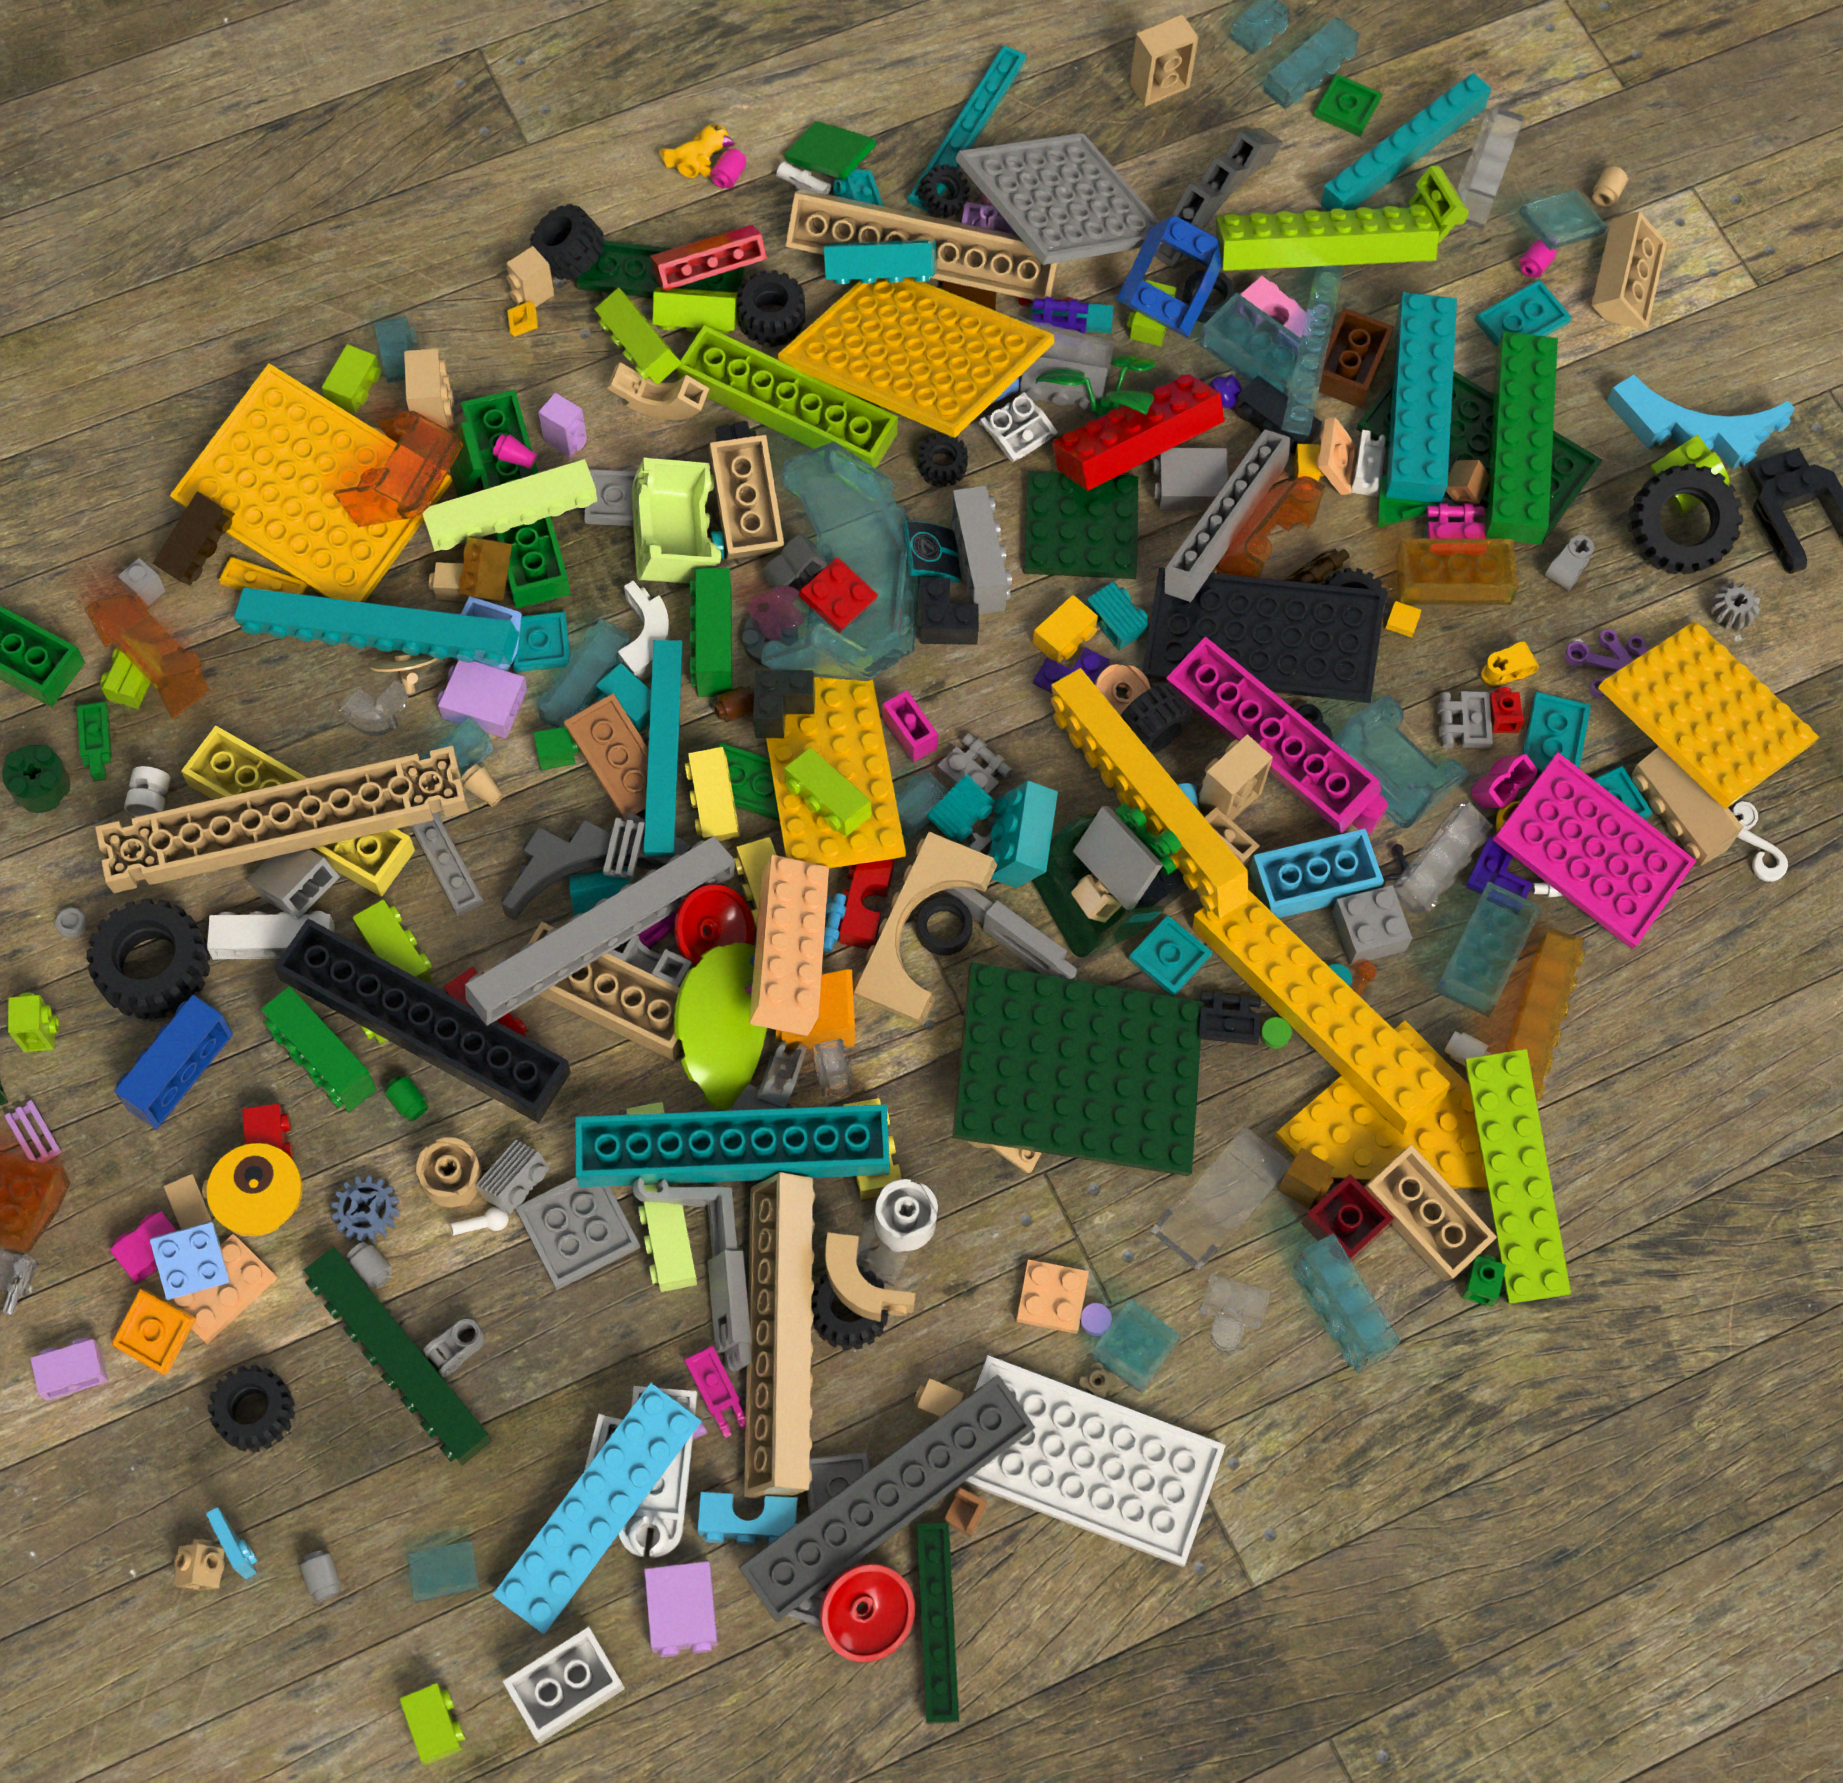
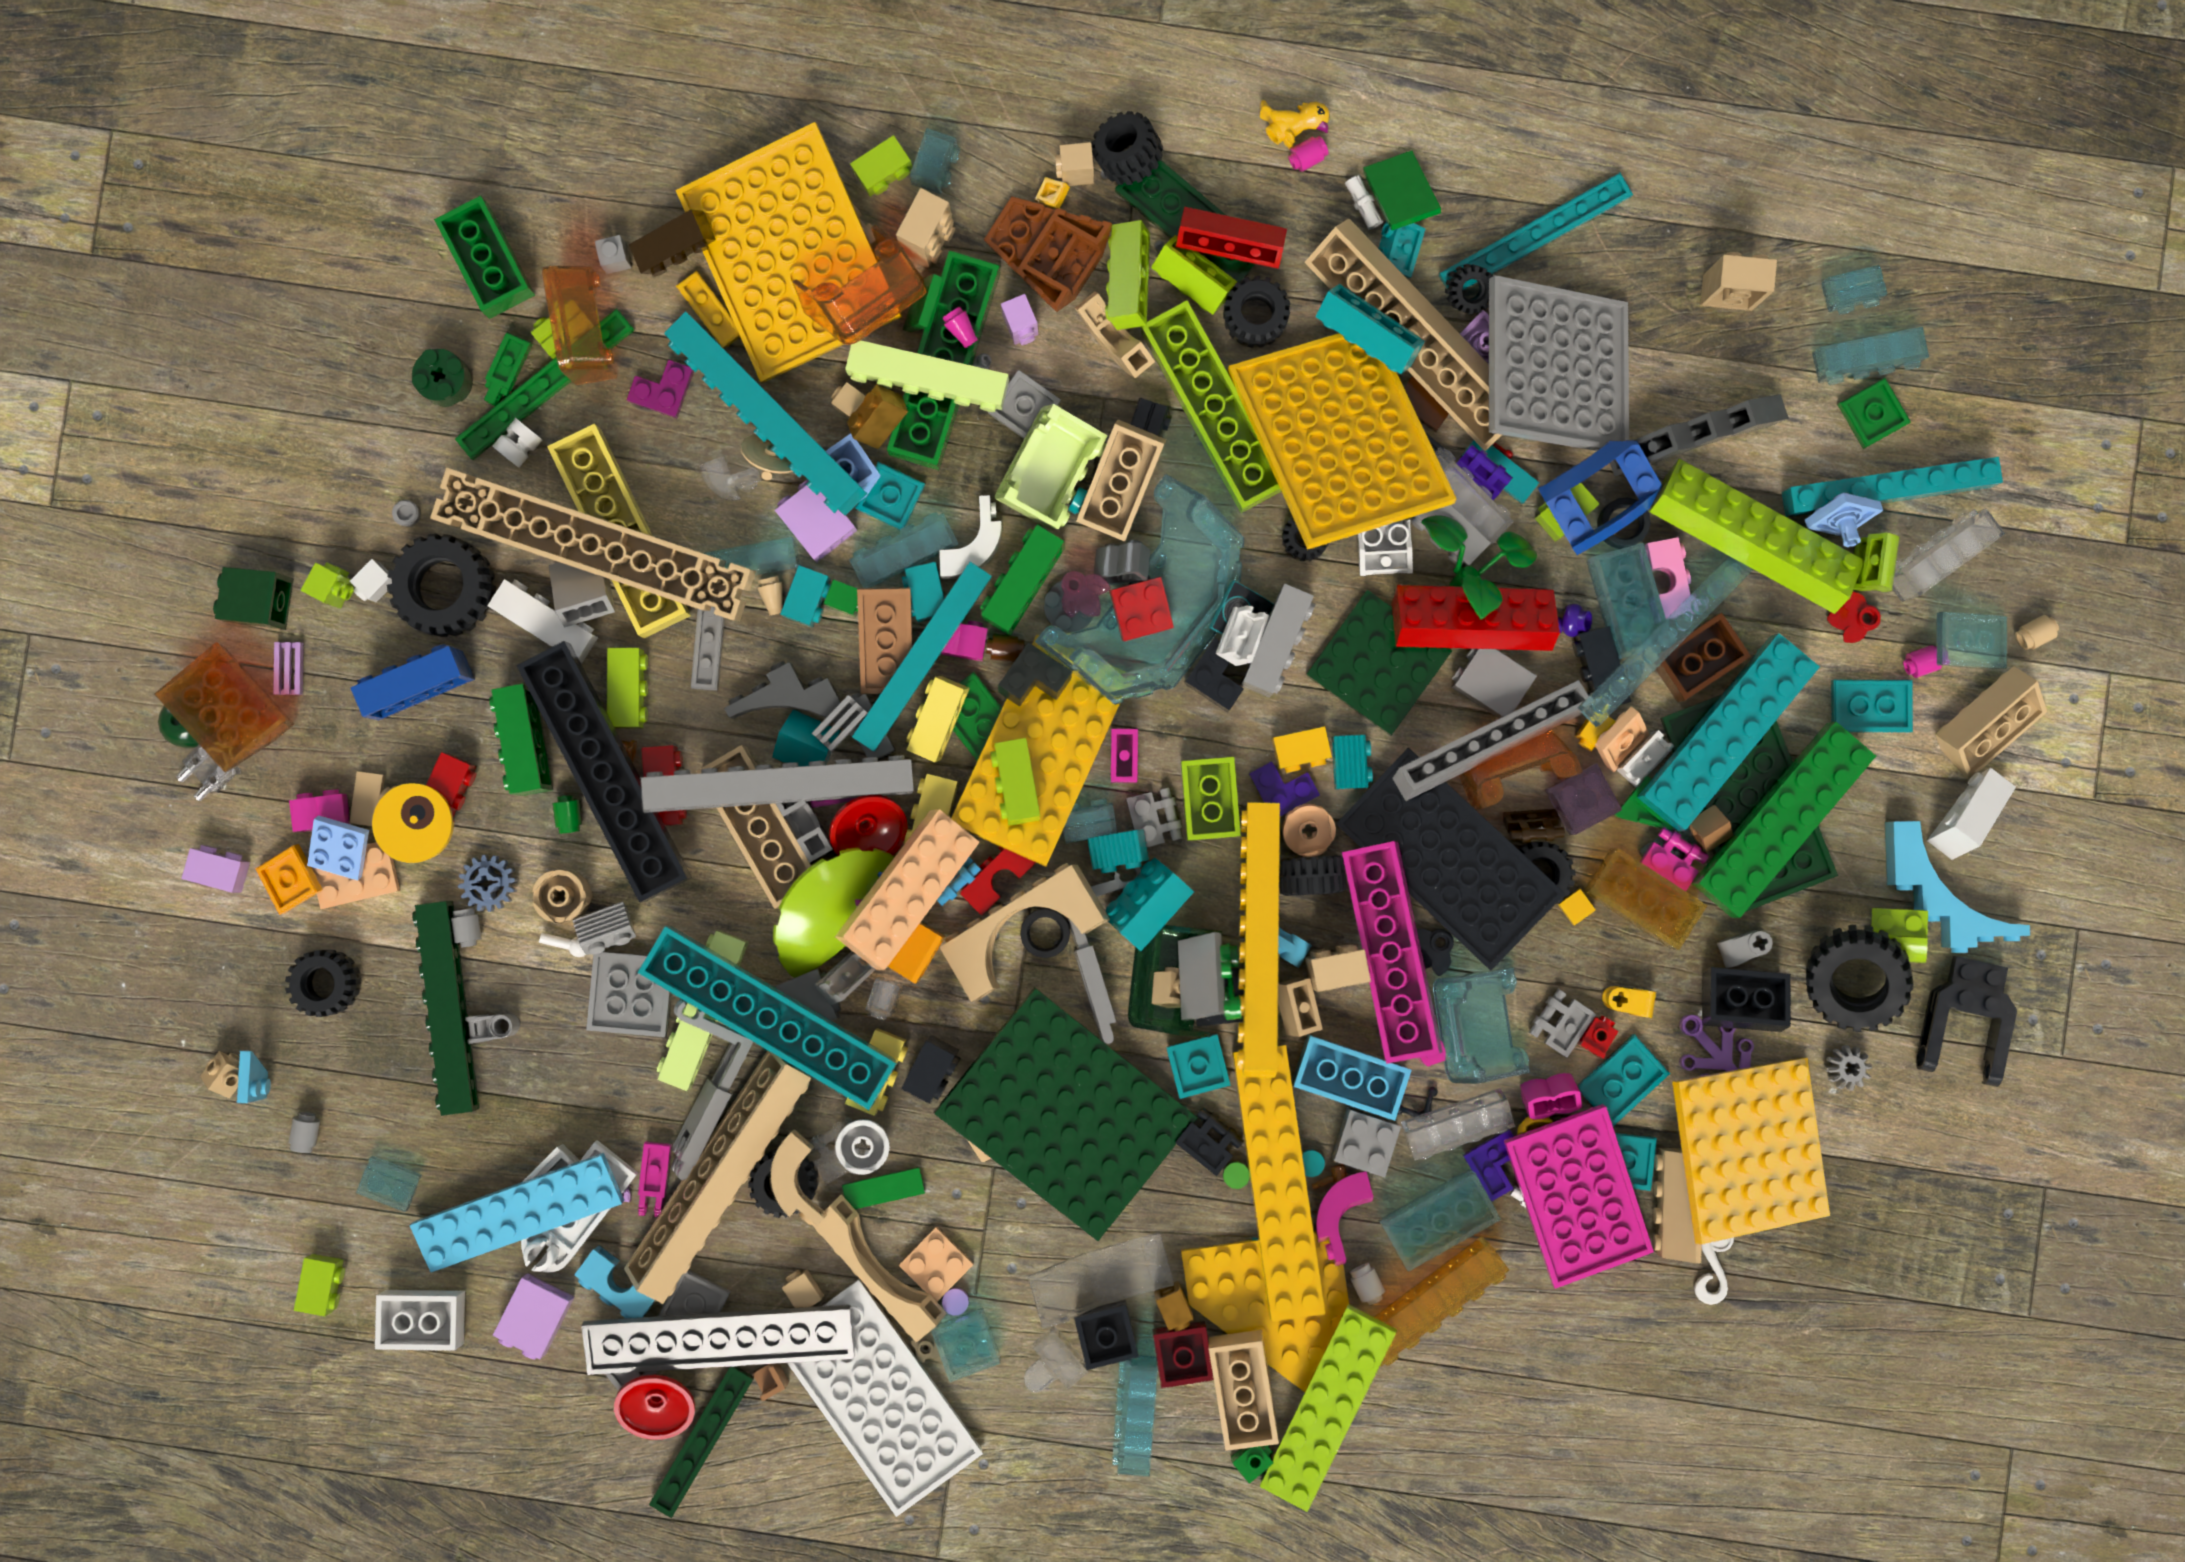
camera: 40 degrees right, 20 degrees up
(74, 999) = (371, 581): none -> white brick
(133, 749) = (532, 394): none -> green tile
(267, 679) = (666, 396): none -> magenta plate
(516, 767) = (806, 597): none -> teal brick
(549, 358) = (1049, 248): none -> dark orange wedge
(697, 719) = (968, 642): none -> dark pink brick
(924, 1099) = (930, 1068): none -> black brick
(946, 557) = (1242, 635): none -> white hinge
(952, 1257) = (884, 1188): none -> green tile
(1014, 716) = (1210, 798): none -> lime brick
(1060, 1348) = (910, 1307): none -> tan arch
(1262, 1248) = (1106, 1335): none -> black brick
(1341, 524) = (1583, 799): none -> clear purple brick
(1385, 180) = (1844, 516): none -> light blue plate
(1388, 982) = (1342, 1196): none -> dark pink arch
(1453, 263) = (1851, 618): none -> red plate
(1606, 599) = (1746, 999): none -> black brick
(1671, 349) = (1972, 814): none -> white wedge

